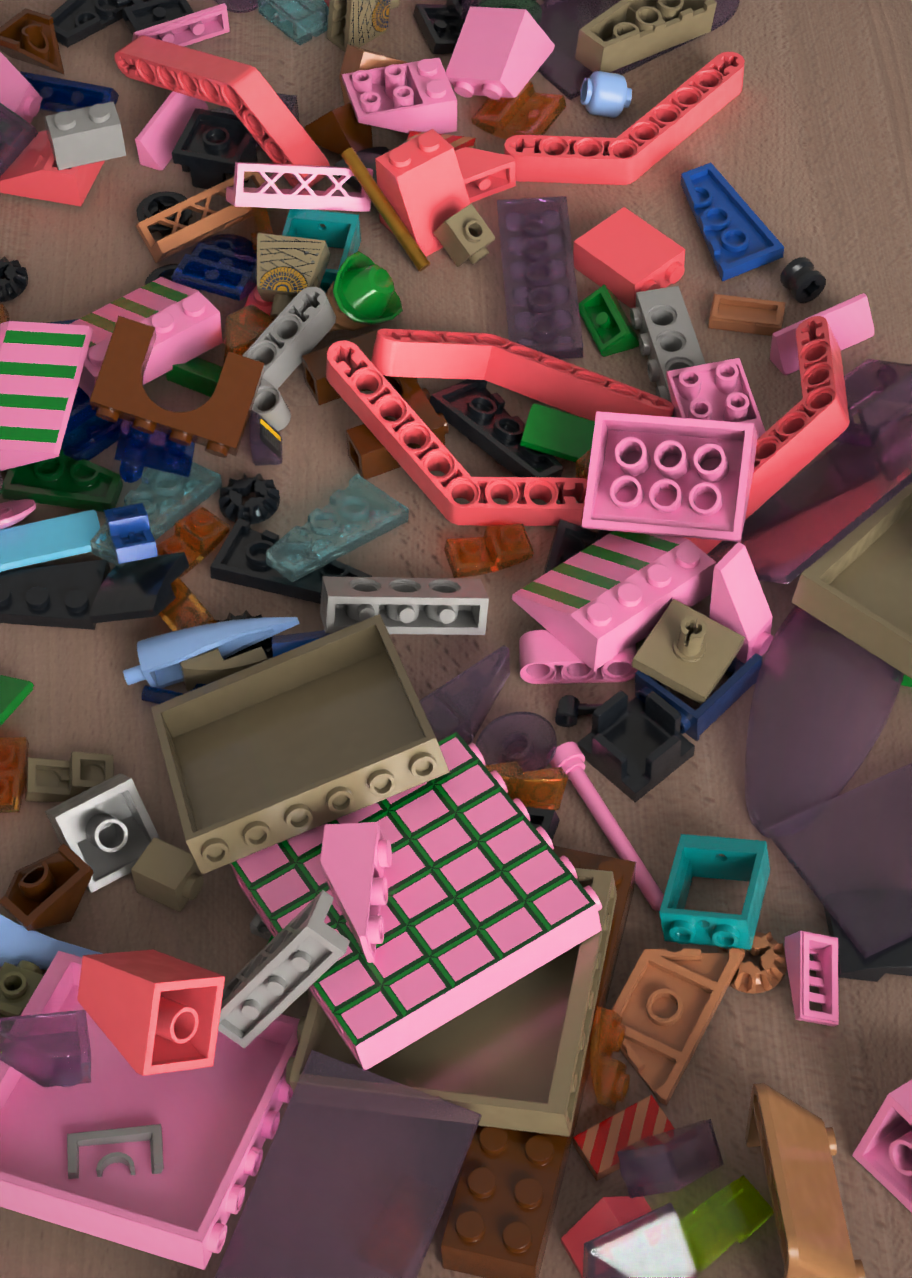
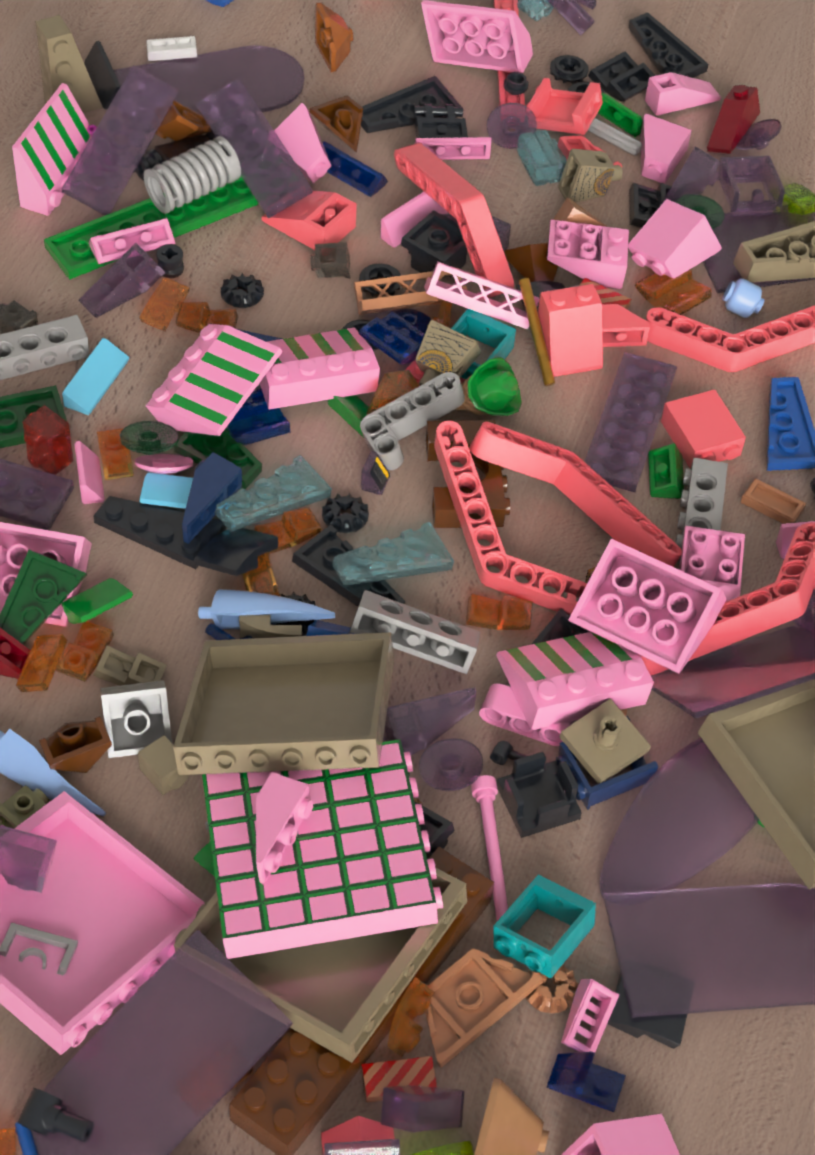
camera: 15 degrees right, 0 degrees up
(75, 518) = (212, 483): none -> dark blue slope
(85, 135) = (342, 205): light grey slope -> none
(94, 208) = (331, 260): none -> clear smoke brick
(130, 533) = (245, 509): blue slope -> none
(153, 451) = (293, 452): clear blue hinge -> none
(153, 1008) = (103, 857): coral slope -> none
(215, 424) = (342, 450): reddish brown arch -> none
(281, 972) = (196, 867): light grey fence -> none
(465, 236) = (588, 371): dark tan brick -> none
(488, 425) = (541, 519): black wing -> none
(534, 788) = (441, 799): clear orange slope -> none
(557, 433) = (584, 541): green slope -> none
(740, 602) = (659, 719): bright pink slope -> none
(843, 1053) = (581, 1079): none -> clear blue slope

